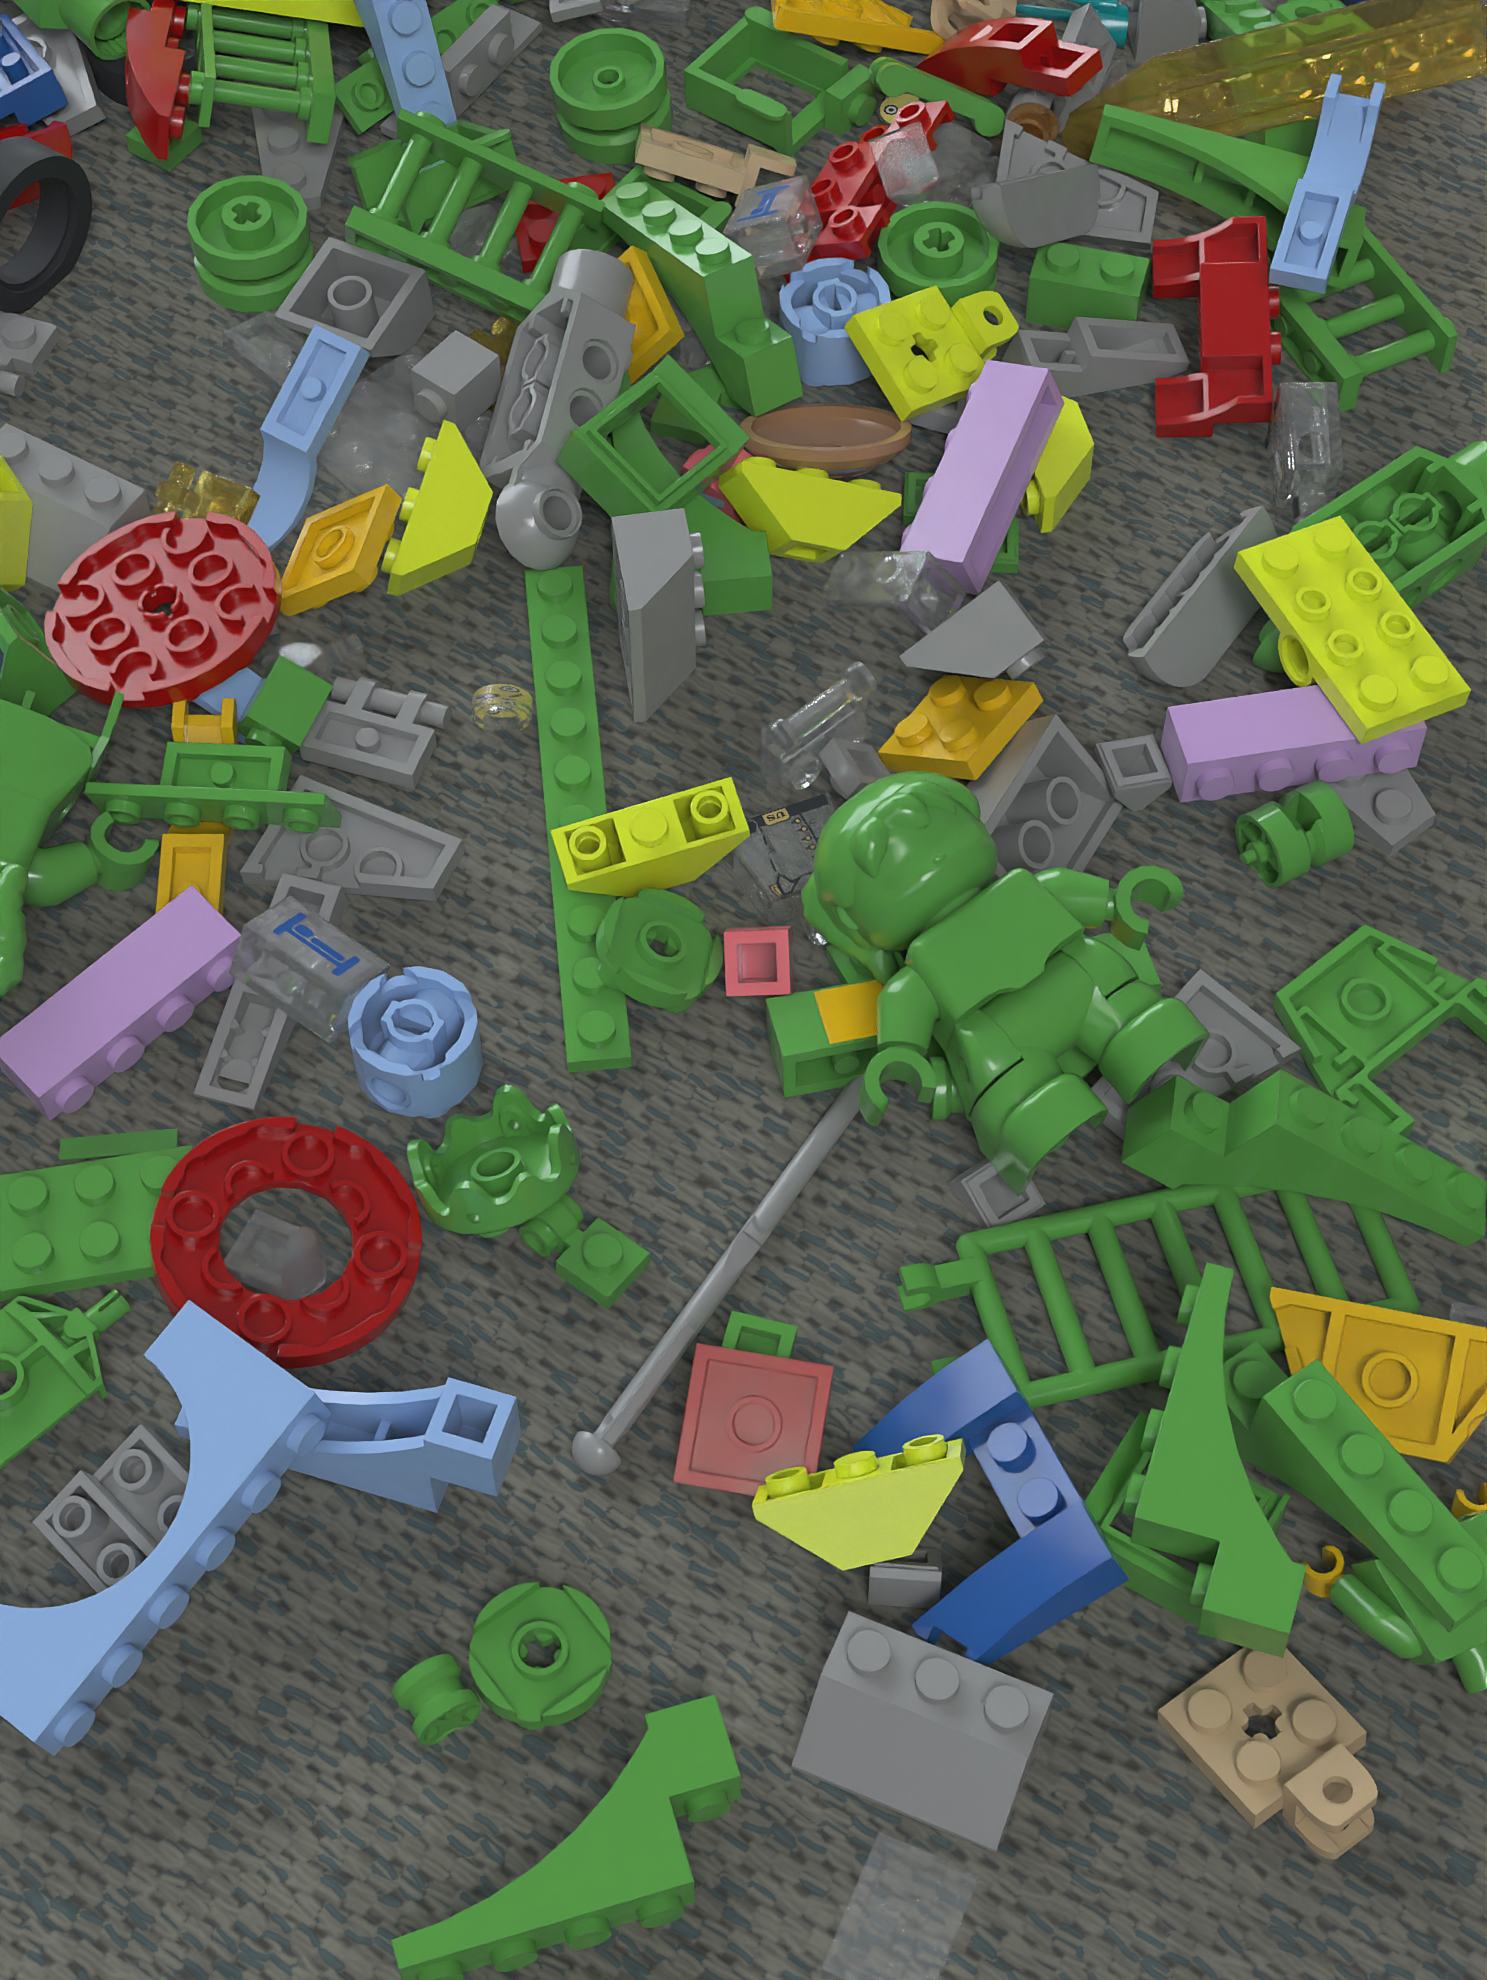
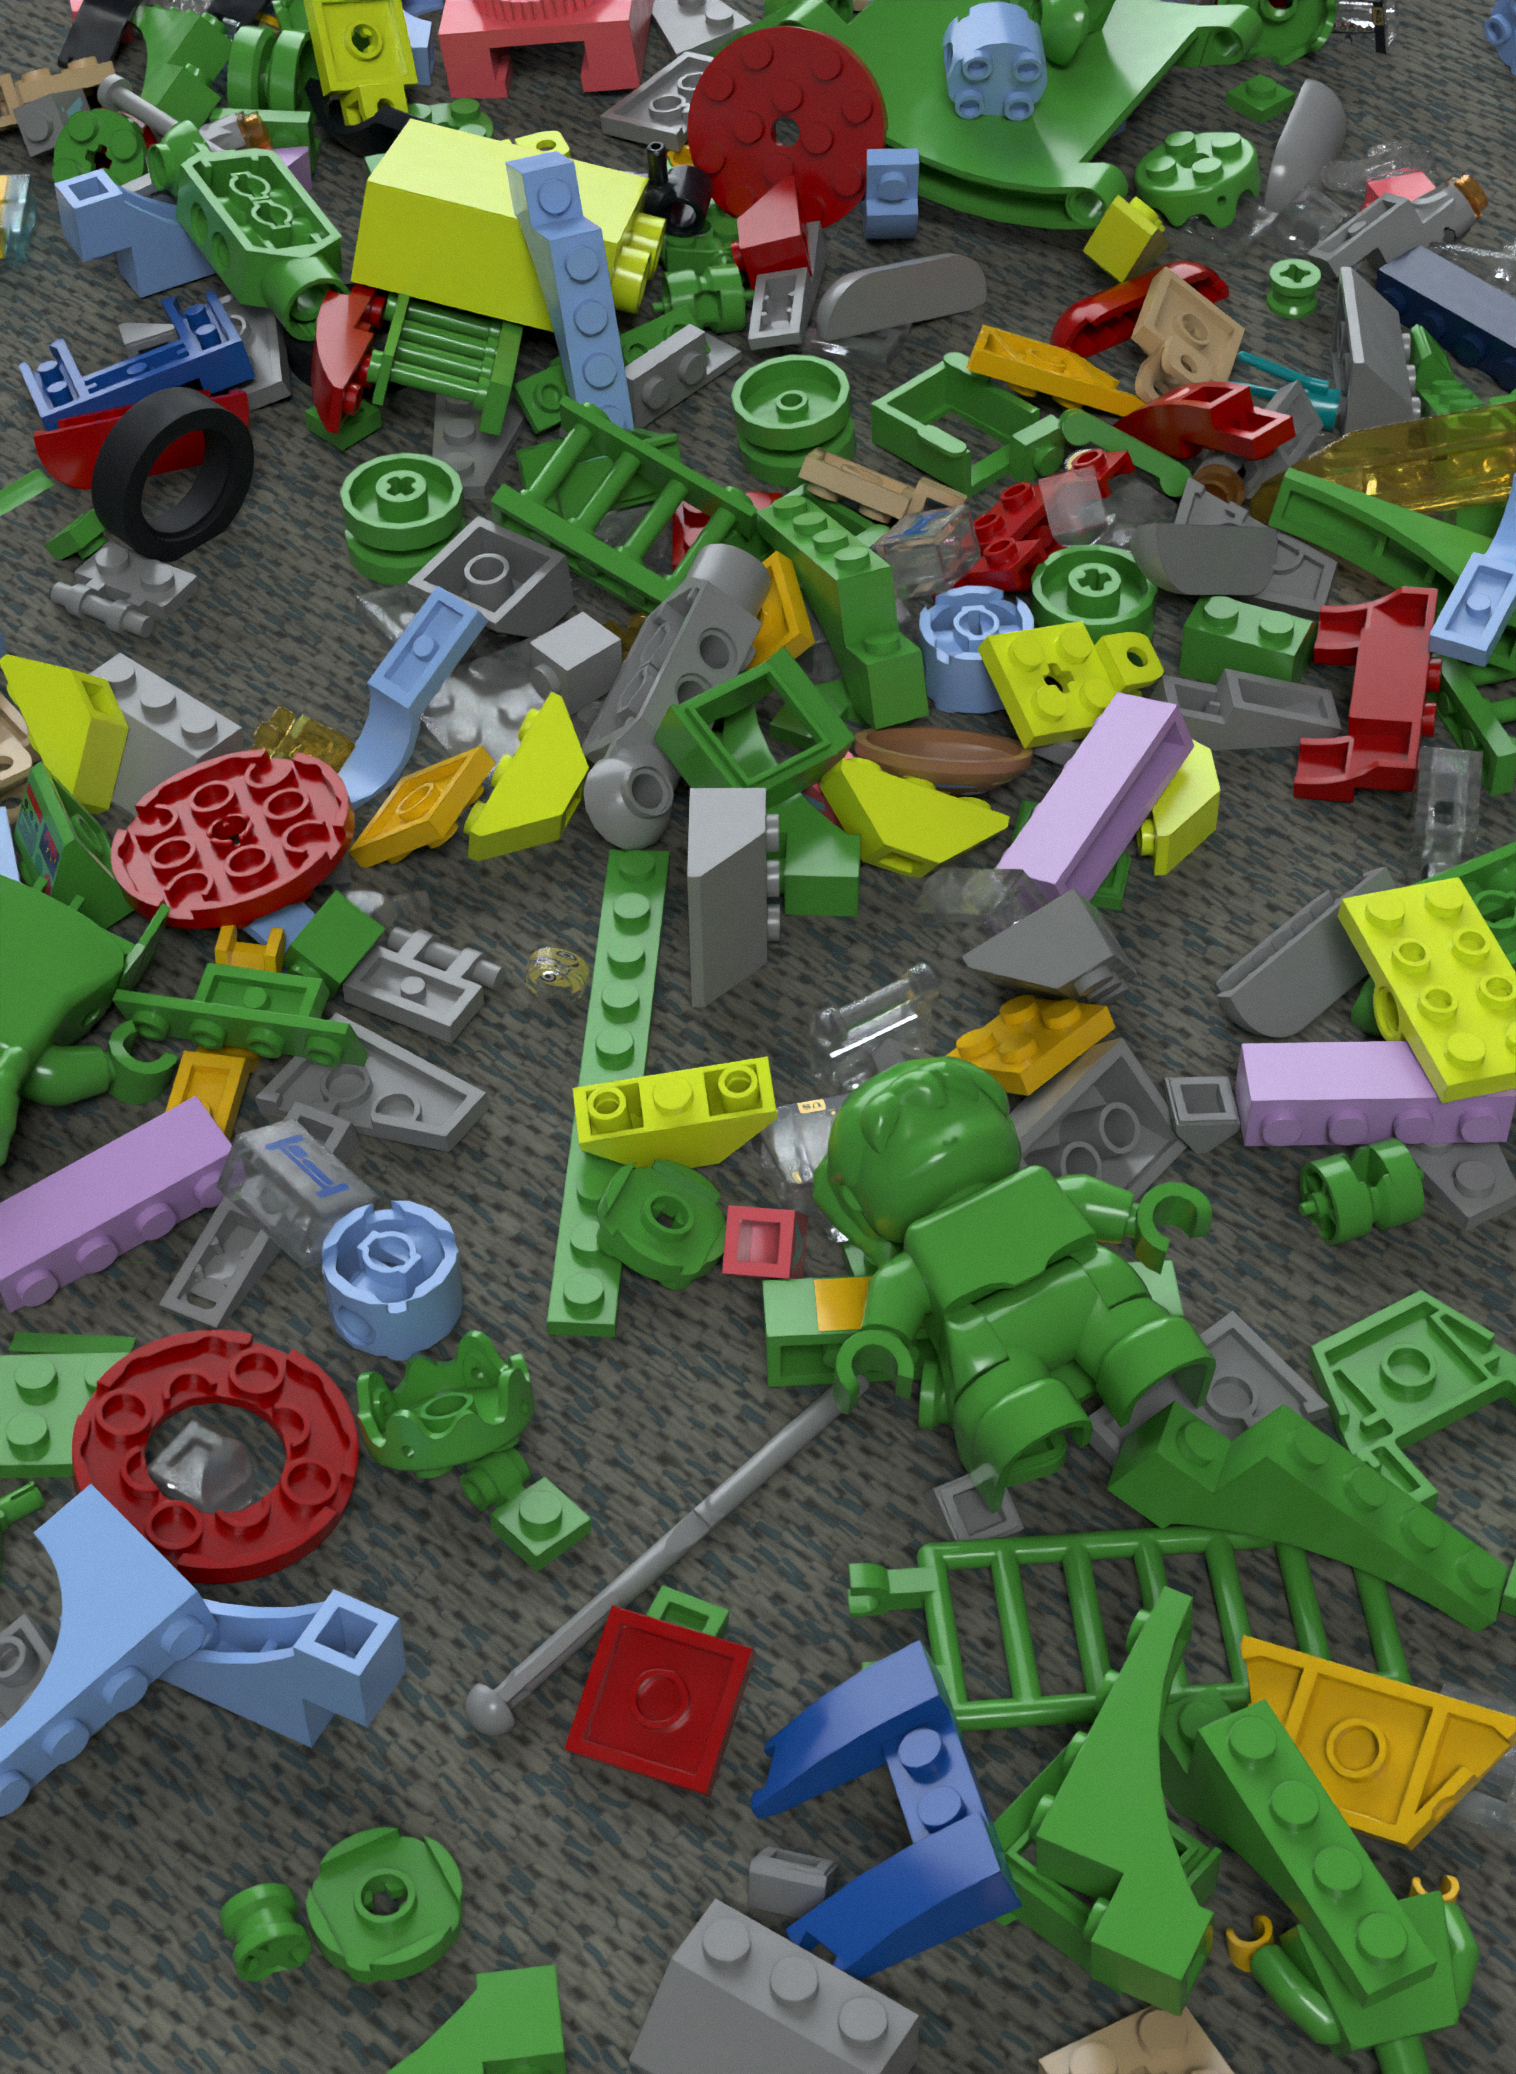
camera: 10 degrees right, 10 degrees down
(864, 1505) = (757, 1796): neon yellow slope -> none

